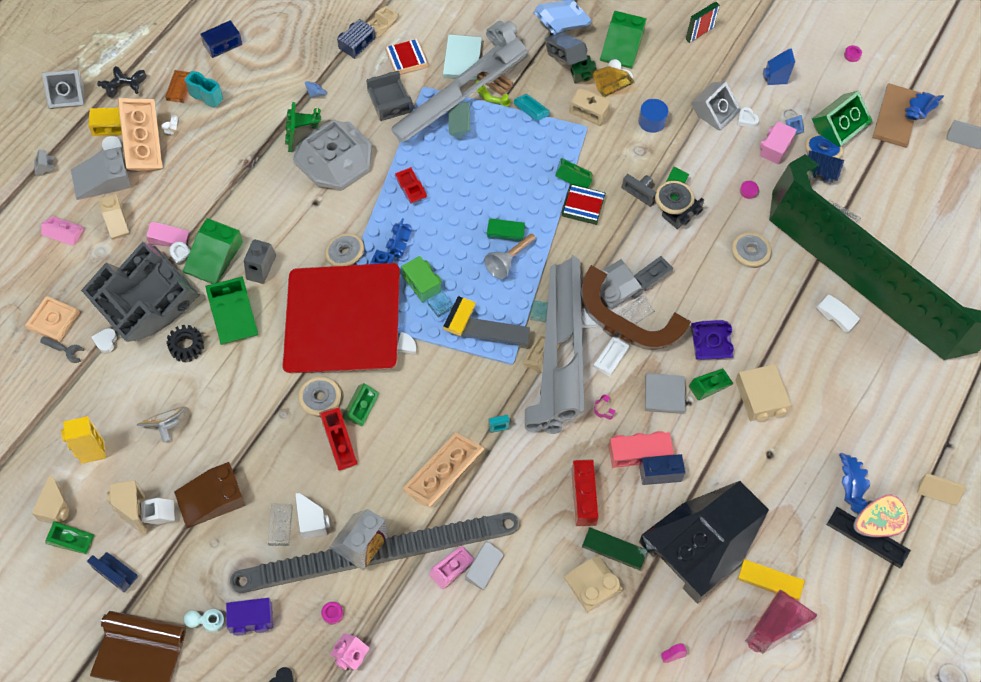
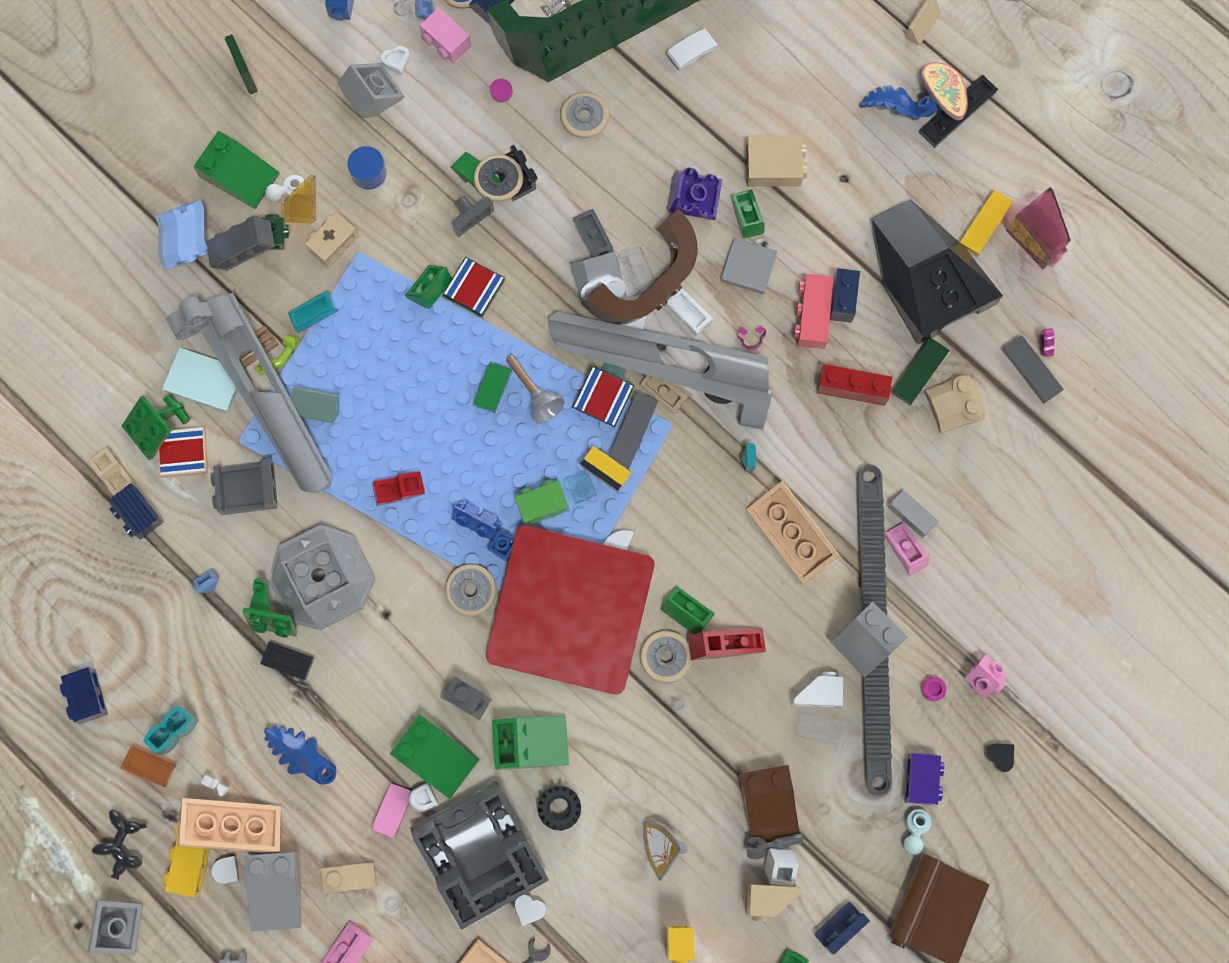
camera: 75 degrees left, 15 degrees up
(172, 494) = (777, 843): none -> dark grey piece
(201, 170) = (300, 754): none -> blue plant
(268, 149) = (287, 661): none -> black tile
(420, 27) = (148, 427): none -> green plate
(519, 305) = (603, 396): none -> tile
(645, 647) = (1032, 369): none -> dark grey tile

